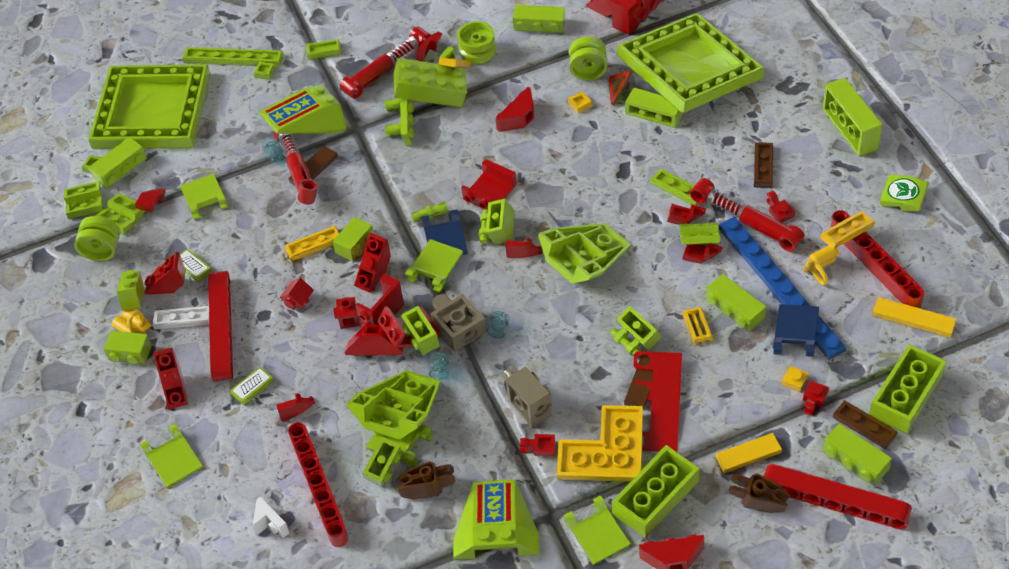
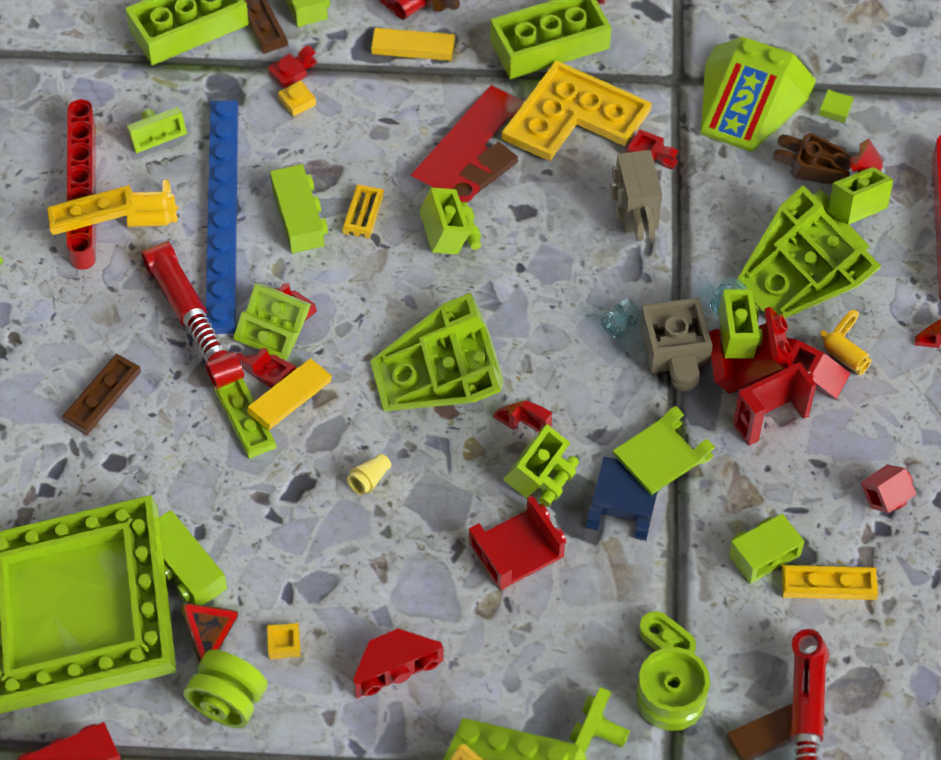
camera: 160 degrees left, 5 degrees up
(346, 312) = (823, 431): red brick -> none
(352, 362) = (843, 348): none -> yellow piece
(371, 151) = (672, 688): none -> lime wheel
(373, 263) = (756, 481): red slope -> none
(386, 493) = (866, 158): none -> red slope
(387, 179) = (670, 633): none -> lime plate
(429, 541) = (836, 106): none -> lime tile
(432, 211) = (629, 543): lime pin -> none
(589, 183) = (368, 474): none -> light yellow cone
(597, 533) = (638, 36): lime flag -> none
(660, 203) = (289, 394): none -> yellow tile
(779, 209) = (135, 313): red plate -> none
(796, 326) = (249, 143): dark blue flag -> none
(863, 312) = (156, 128): none -> lime tile
(914, 317) = (106, 108): yellow tile -> none

